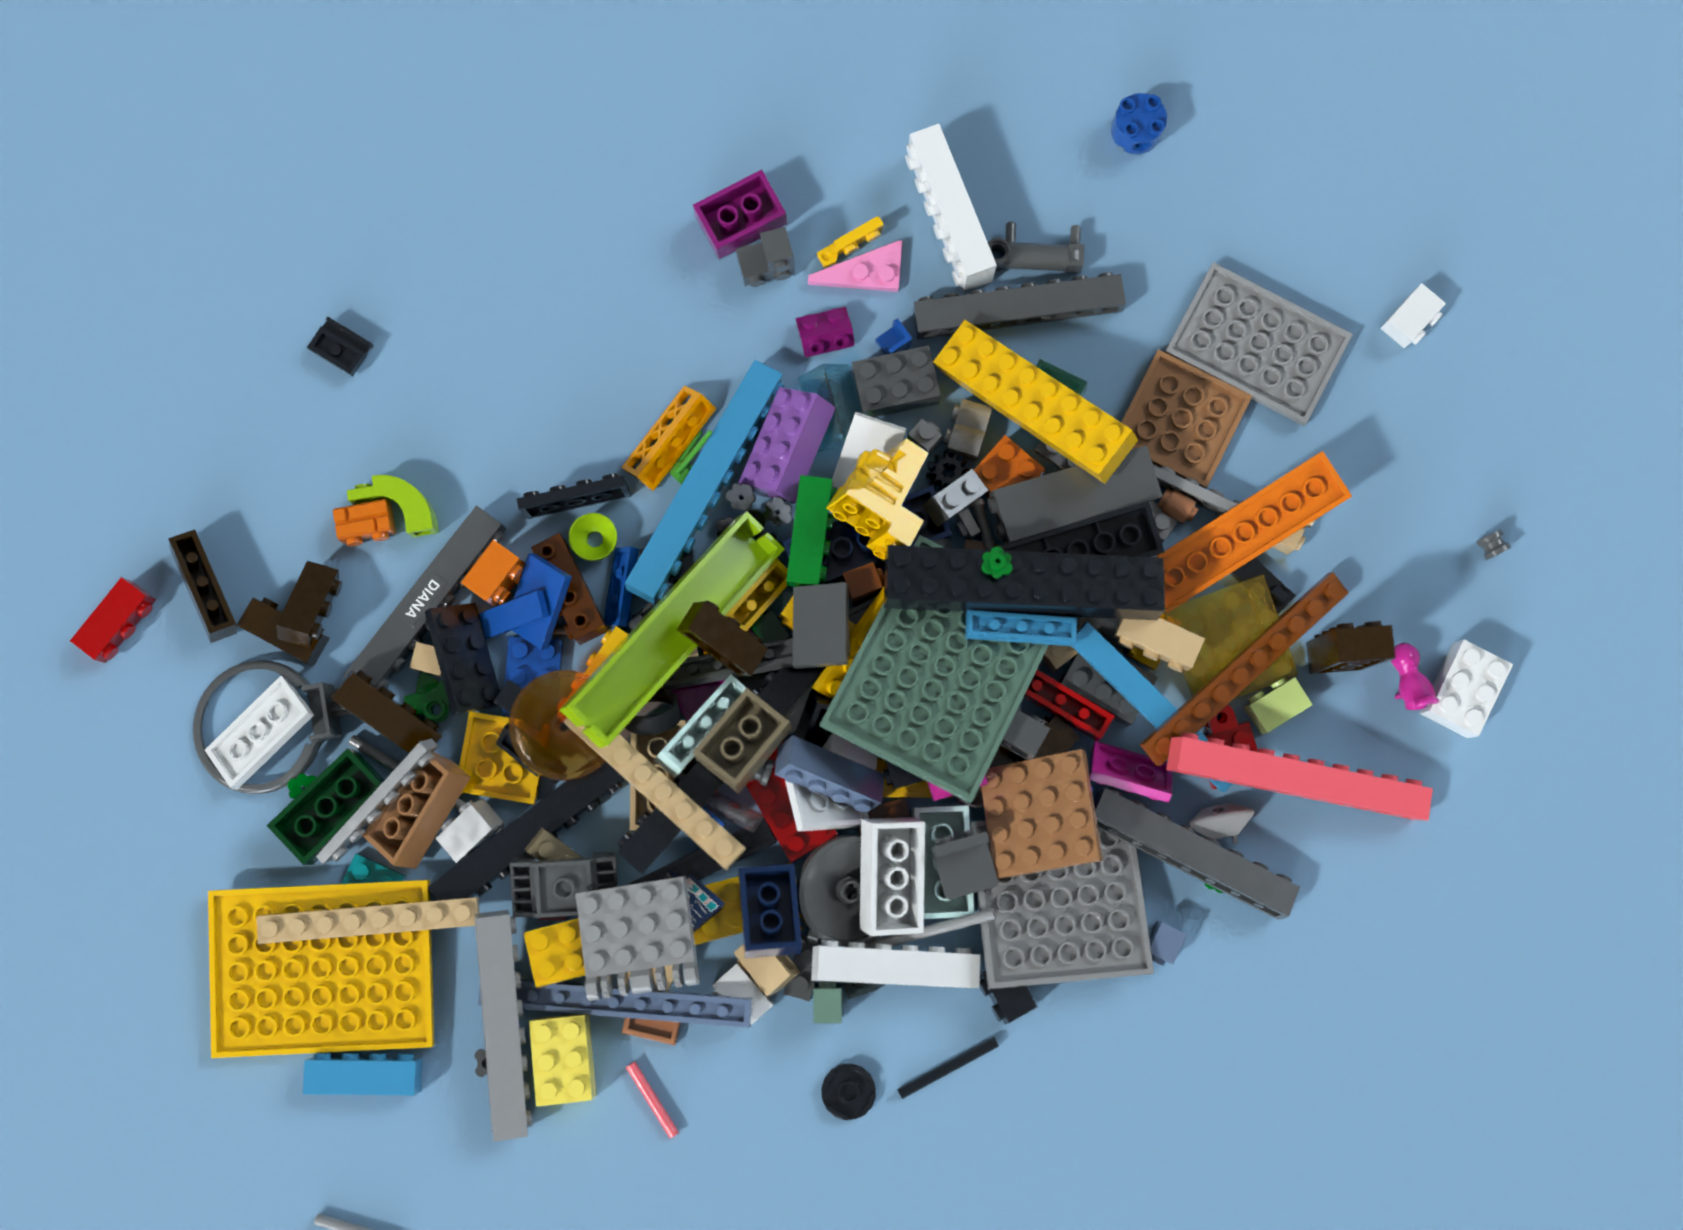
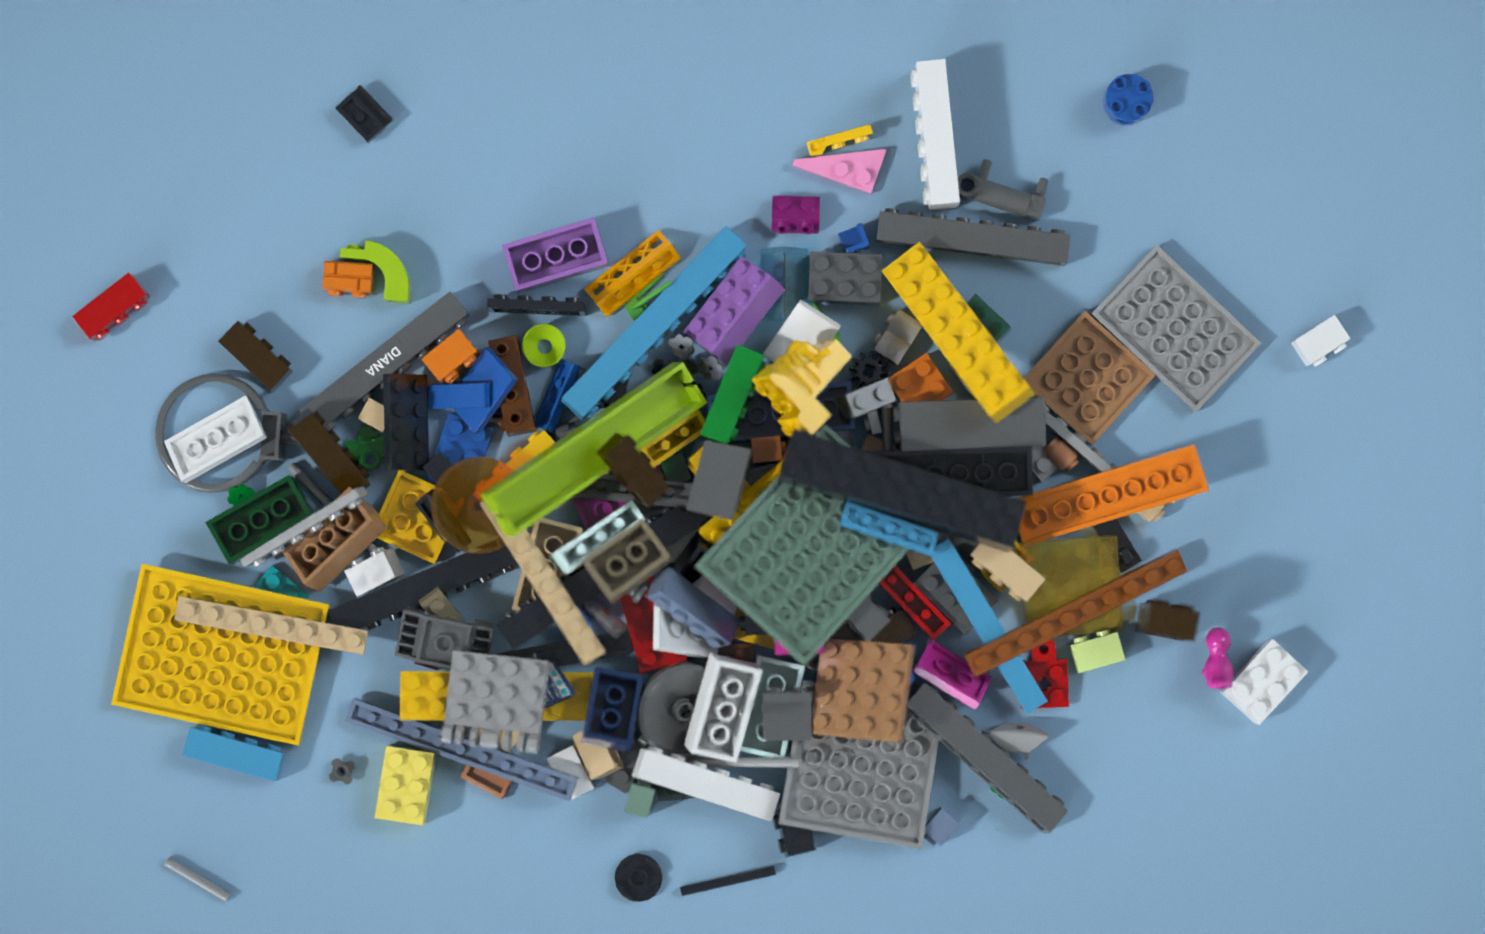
camera: 20 degrees right, 5 degrees up
(202, 586) = (196, 298): dark brown brick -> none
(308, 604) = (285, 340): dark brown brick -> none
(501, 1025) = (362, 741): light grey brick -> none
(581, 438) = (555, 255): none -> medium lavender brick
(652, 1100) = (471, 839): coral bar -> none
(658, 723) = (563, 525): black tyre -> none
(739, 214) = (748, 89): magenta brick -> none
(767, 259) = (760, 137): dark grey brick -> none
(926, 435) = (857, 334): light grey brick -> none
(996, 569) = (875, 472): green plant -> none
(1299, 778) = (1092, 719): coral brick -> none
(1493, 544) = (1328, 563): dark grey wheel -> none

